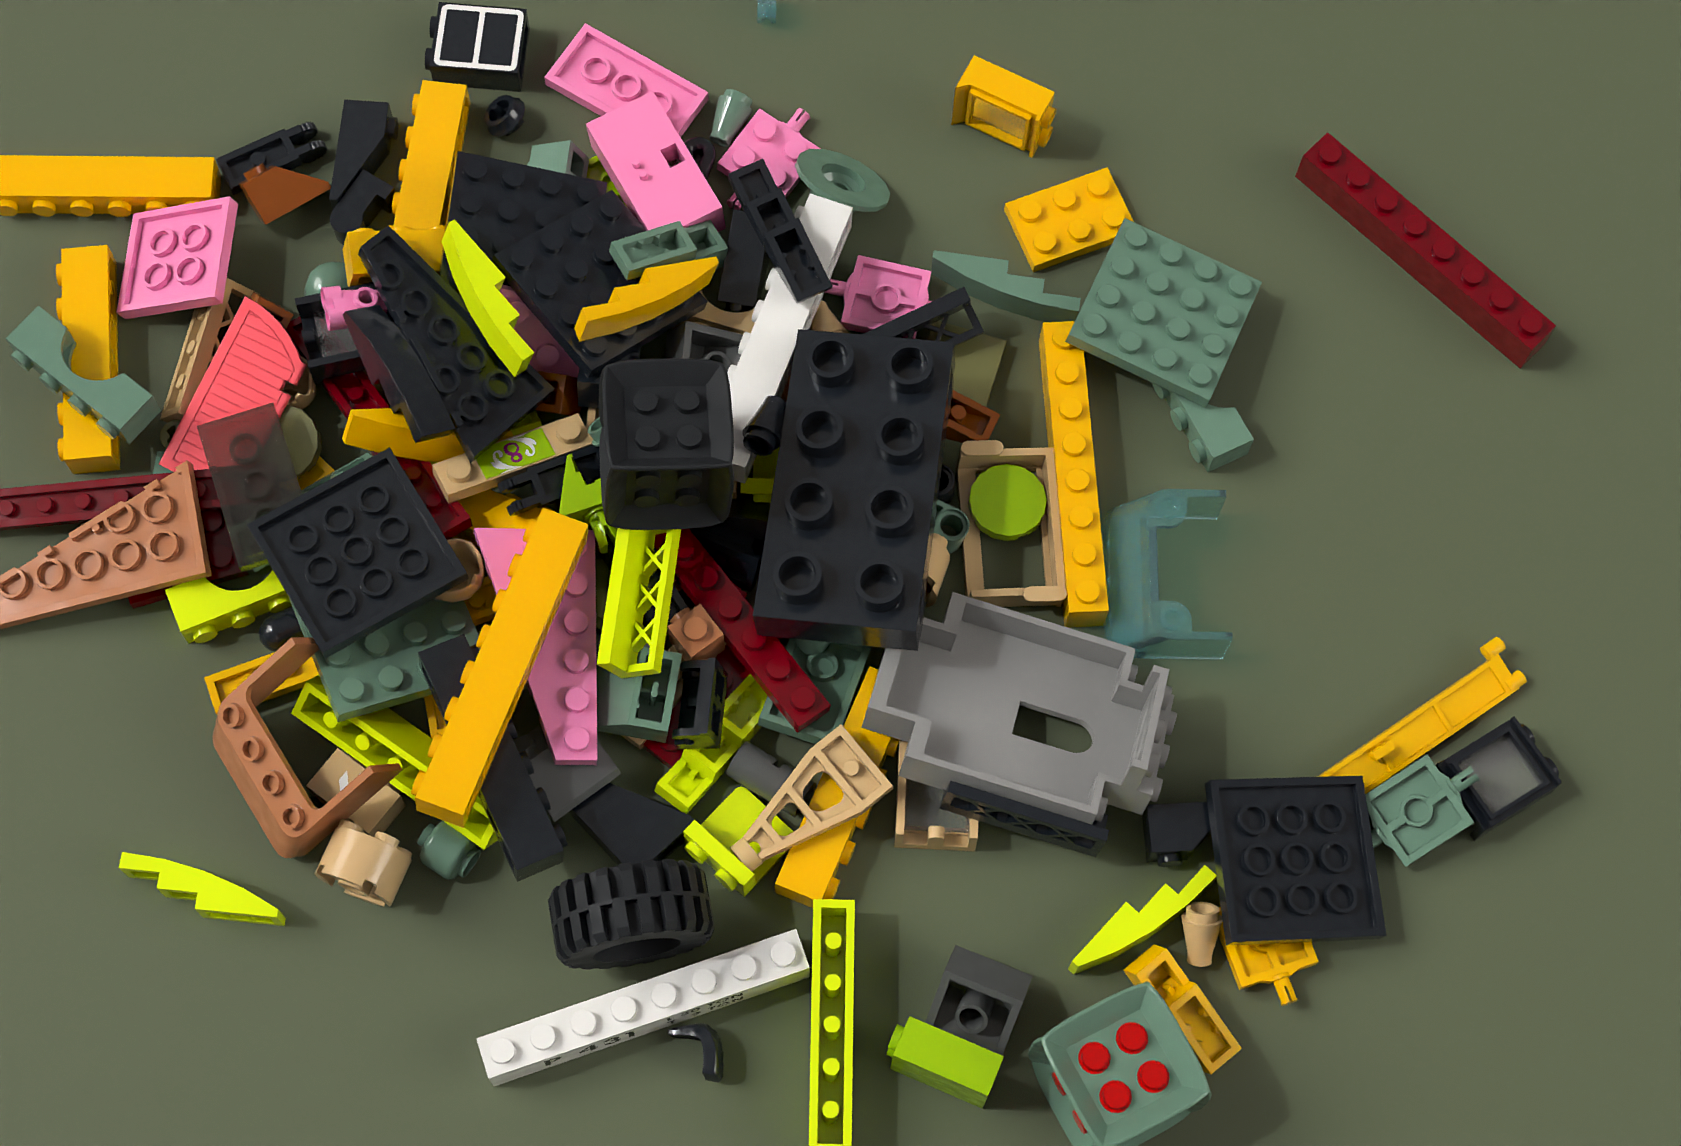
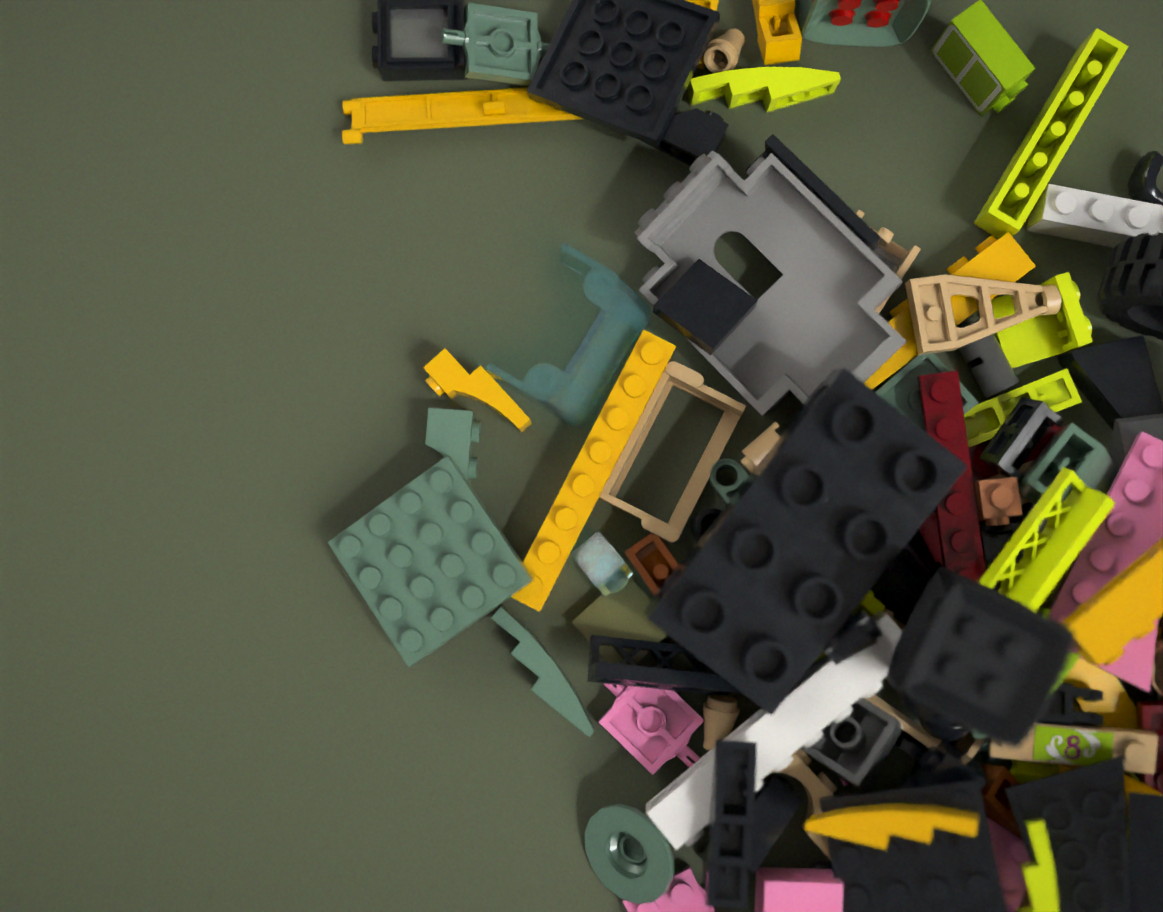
camera: 145 degrees left, 15 degrees up
(667, 246) = (837, 864): sand green slope -> none
(978, 999) = (922, 97): dark grey slope -> none
(1004, 105) = (442, 844): yellow window -> none
(1007, 502) = (661, 477): lime tile -> none
(1012, 396) = (602, 564): none -> clear light blue brick
(1066, 660) = (704, 306): none -> black tile
(1068, 219) = (445, 705): yellow plate -> none
(1249, 485) = (454, 380): none -> yellow slope
(1424, 250) = (168, 497): dark red brick -> none

